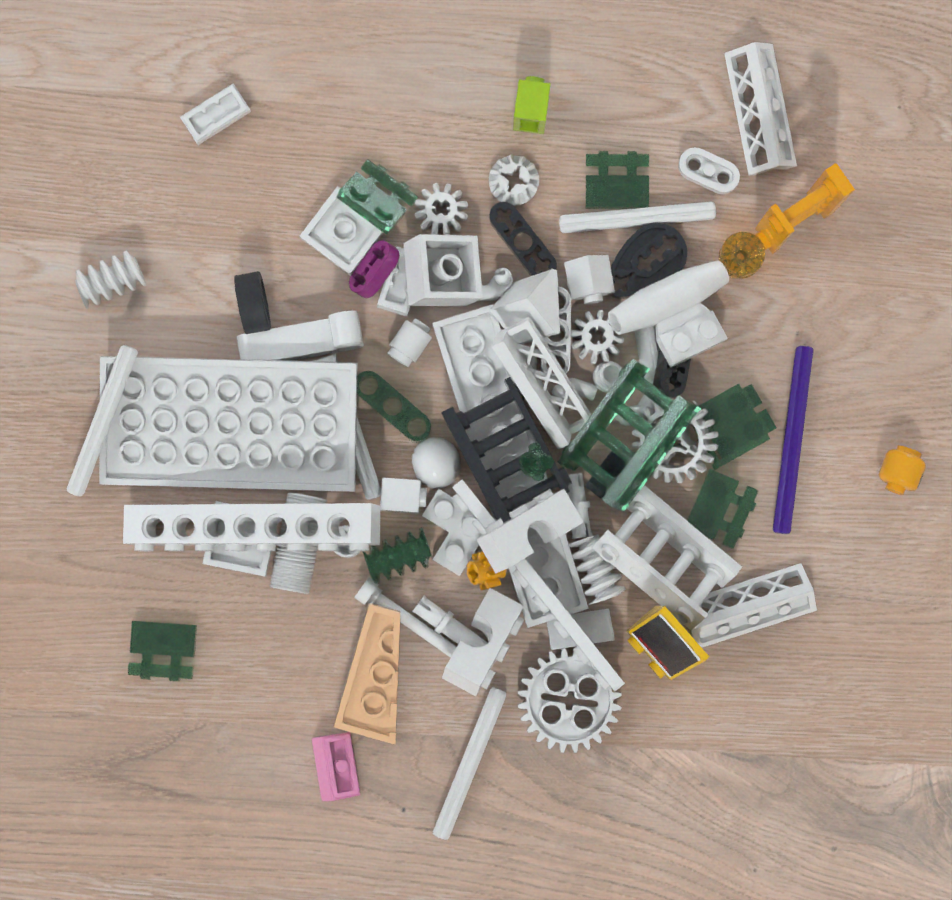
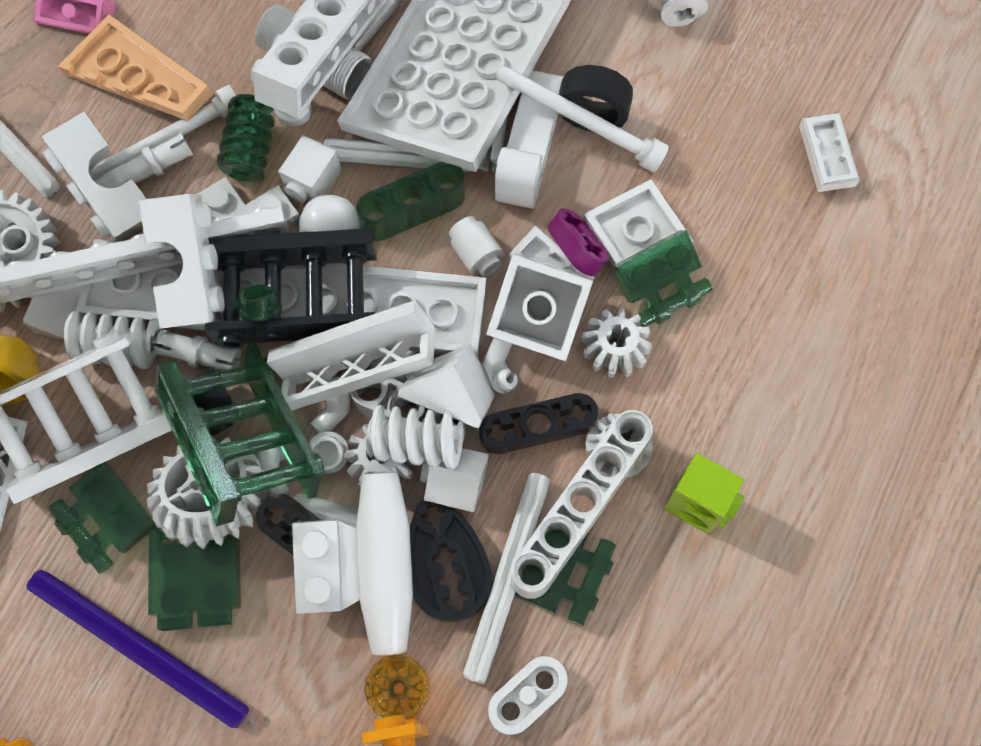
camera: 115 degrees right, 15 degrees down
(275, 246) = (648, 152): none -> white piece
(583, 308) = (414, 438): none -> white piece
(589, 178) = (587, 483): none -> white beam

